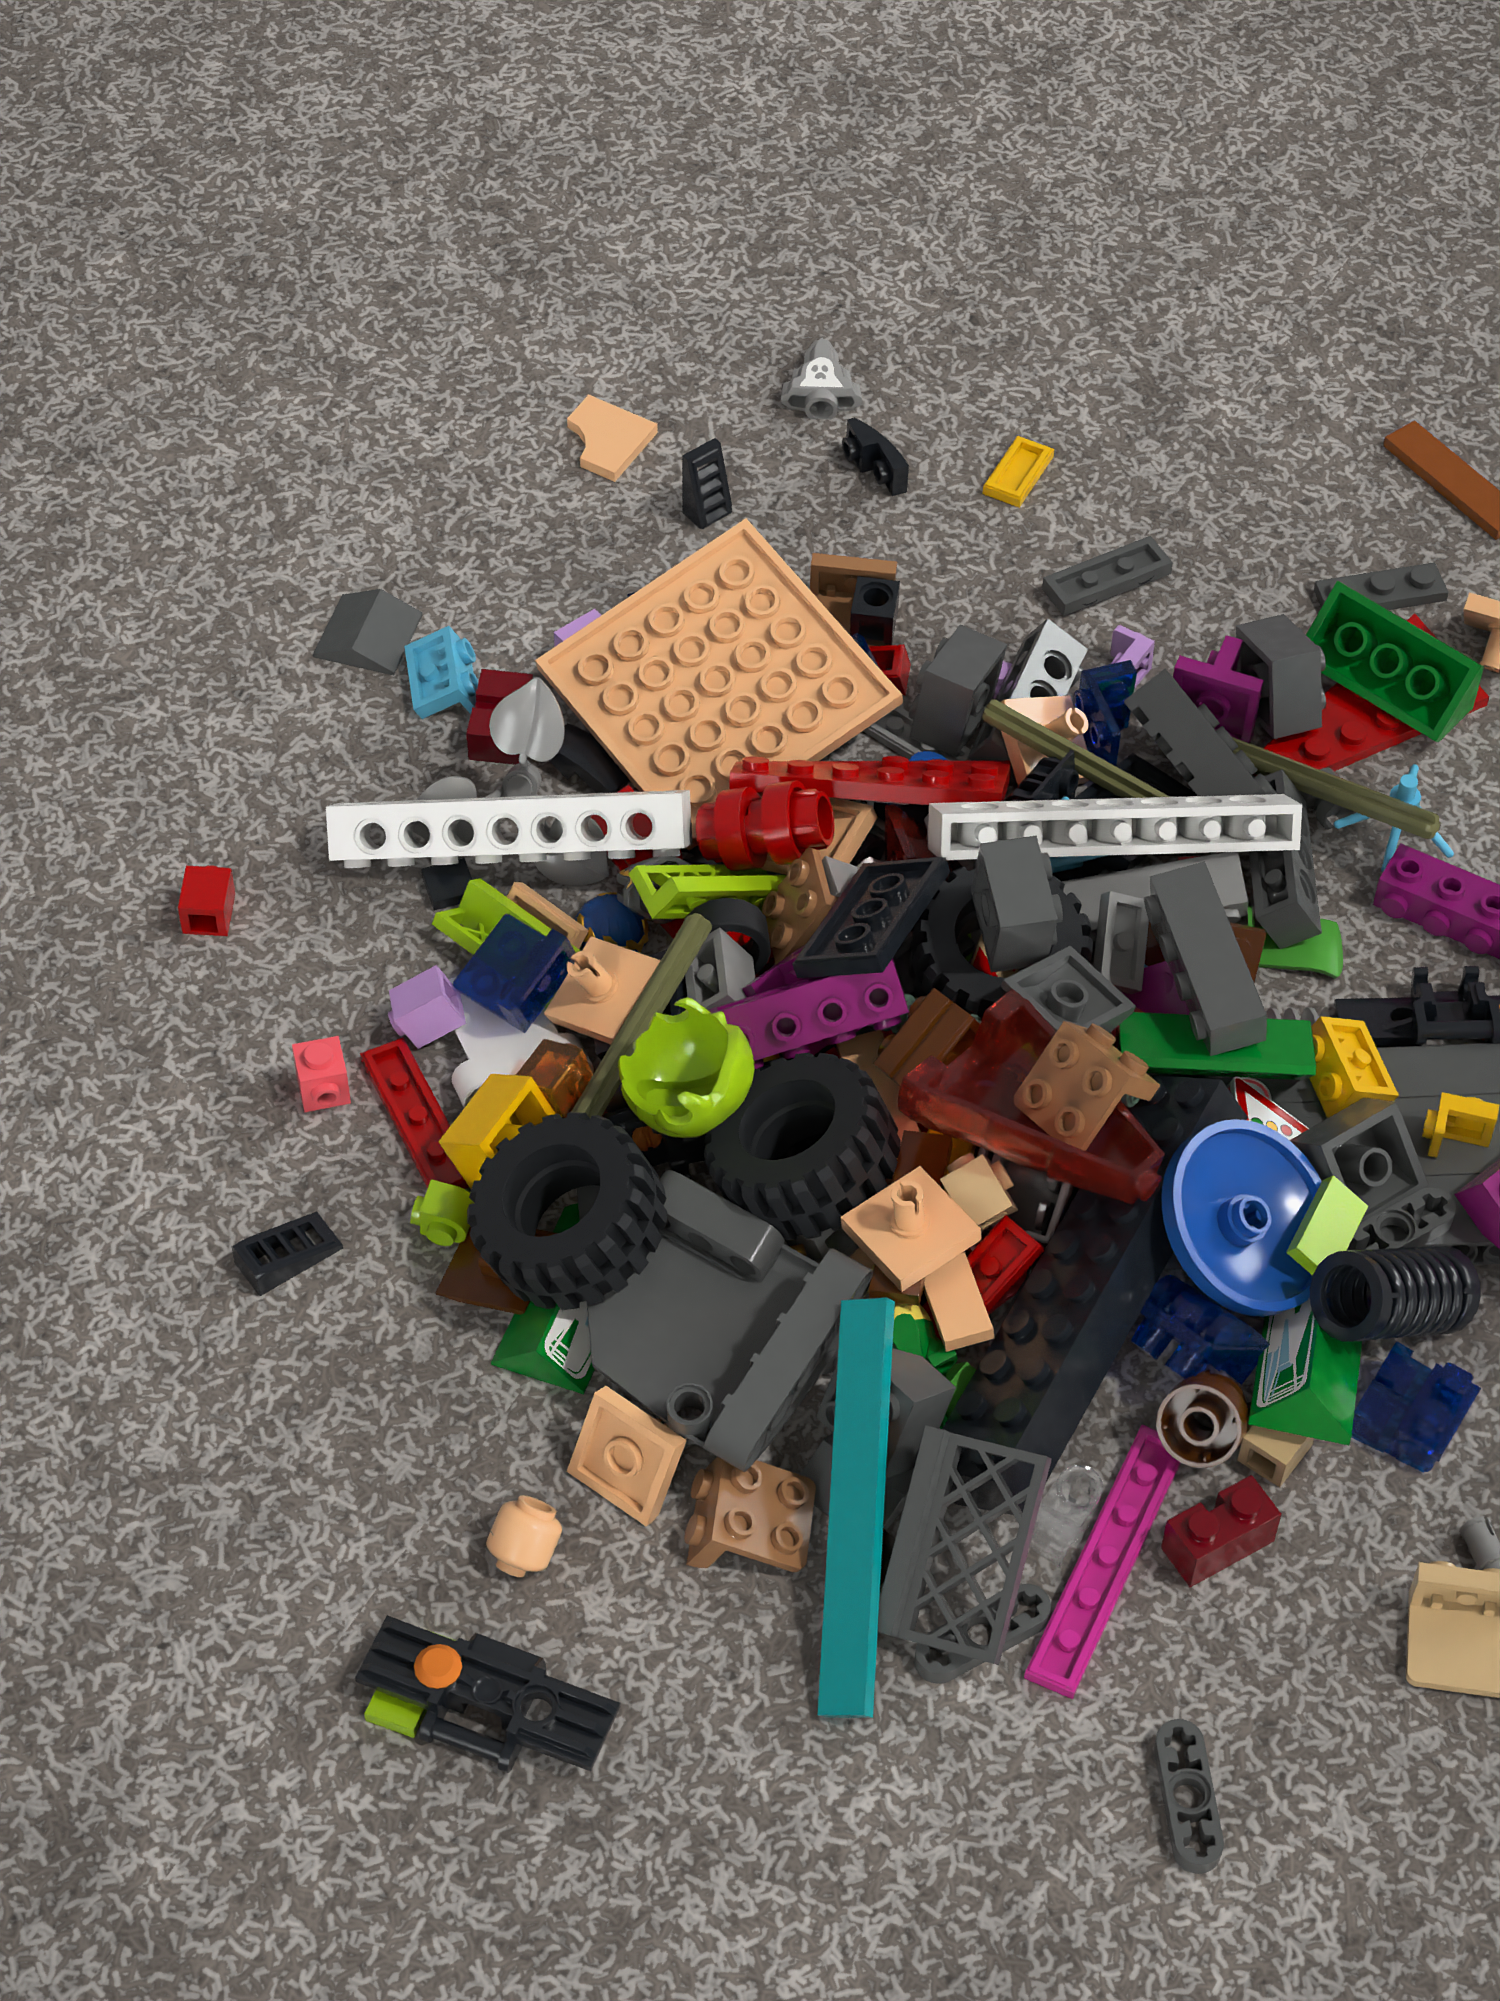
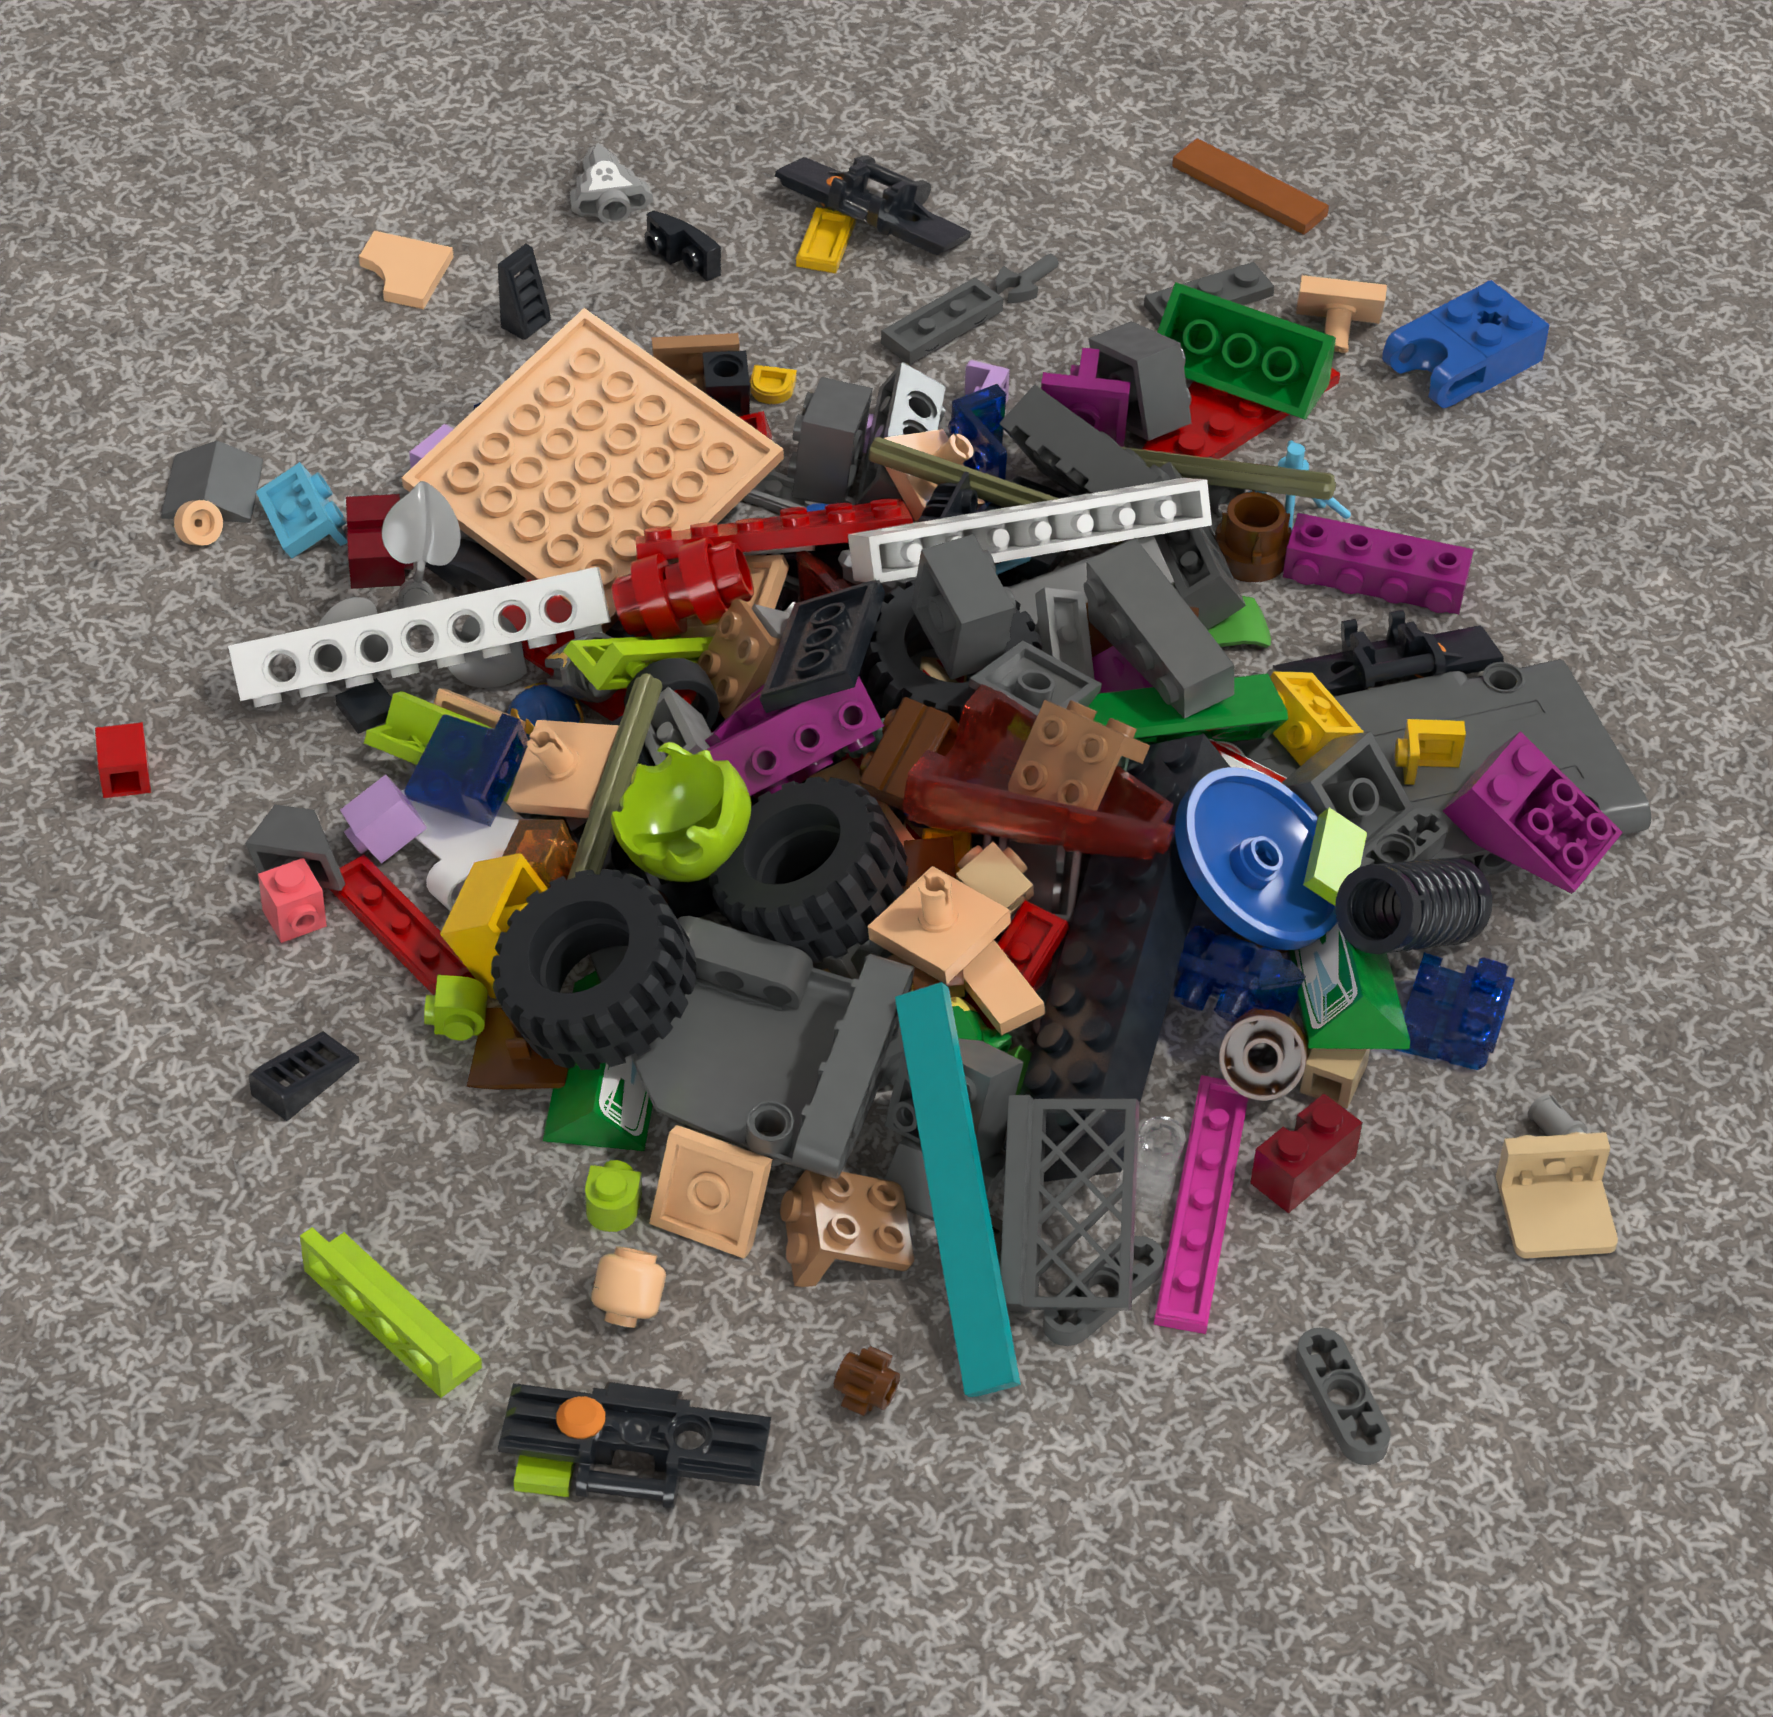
camera: 15 degrees left, 5 degrees down
(299, 1513) = (389, 1311): none -> lime fence
(340, 1011) = (291, 835): none -> dark grey slope
(342, 669) = (198, 522): none -> light nougat tile
(538, 1437) = (613, 1195): none -> lime plate
(724, 1682) = (866, 1380): none -> reddish brown gear
(924, 615) = (772, 384): none -> yellow tile
(1091, 454) = (896, 213): none -> black piece
(1201, 544) = (1025, 280): none -> dark grey bar
(1350, 860) = (1254, 536): none -> reddish brown piece

